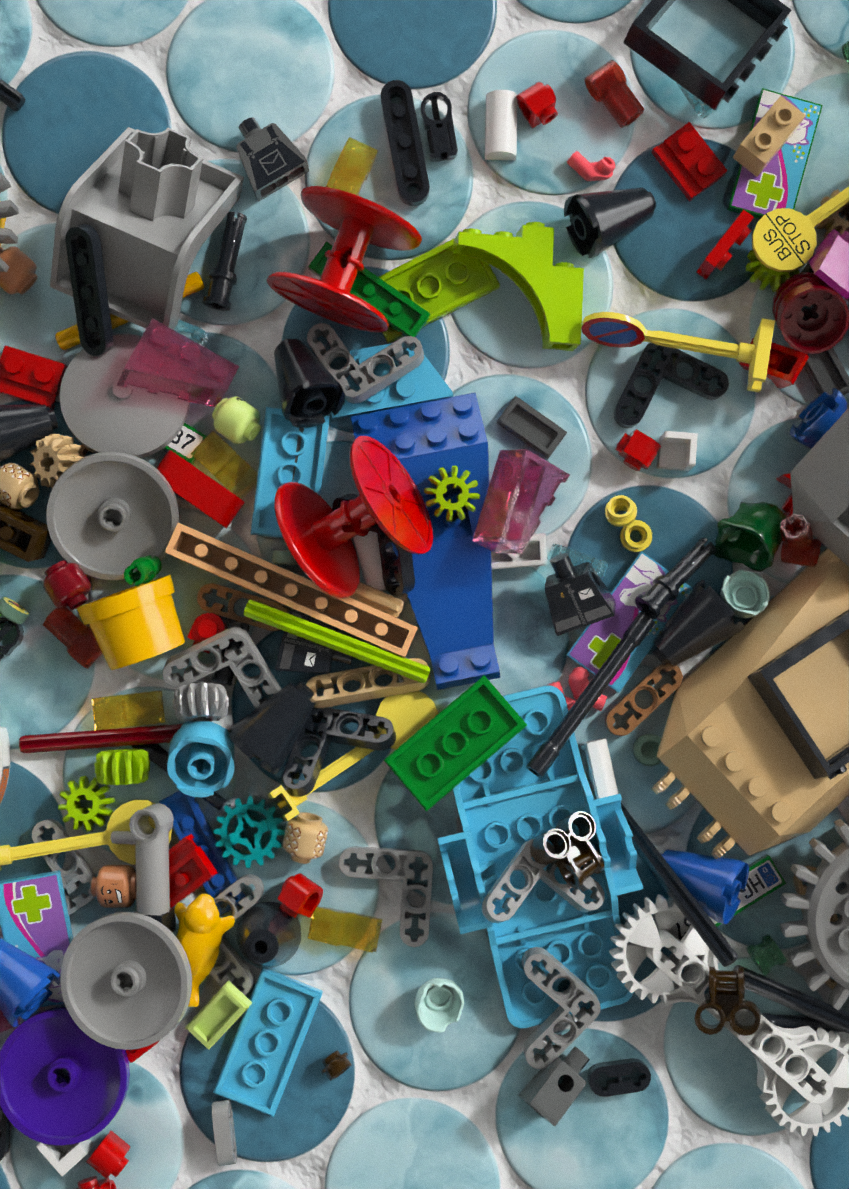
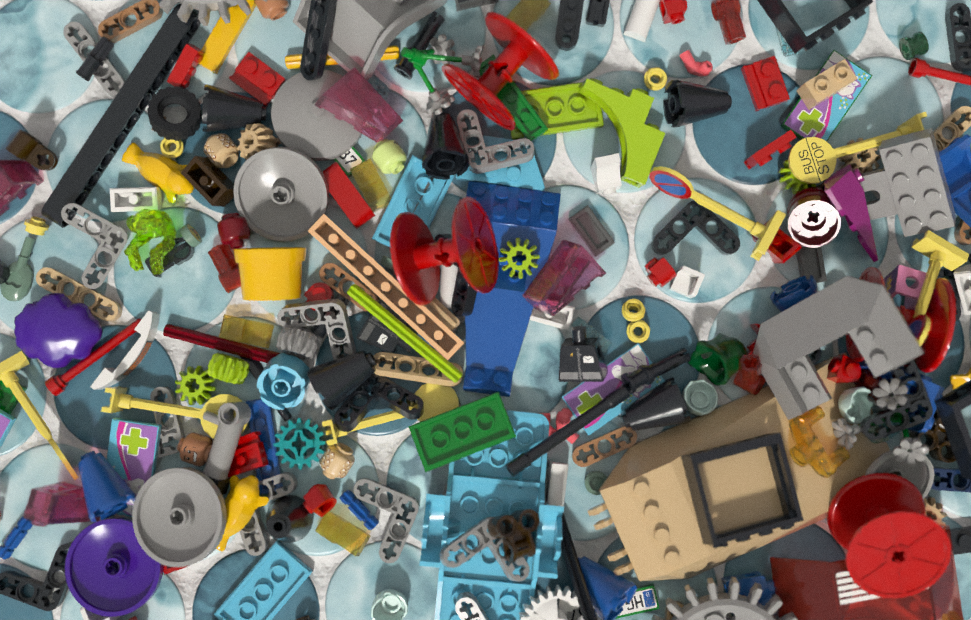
camera: 25 degrees right, 0 degrees up
(143, 572) = (288, 238): green pin -> none
(218, 1015) = (235, 562): yellowish green tile -> none
(258, 262) = (440, 53): none -> light grey plant
(355, 891) = (359, 510): none -> blue axle
(526, 347) = (606, 174): none -> white arch
(550, 194) = (660, 74): none -> light yellow plate

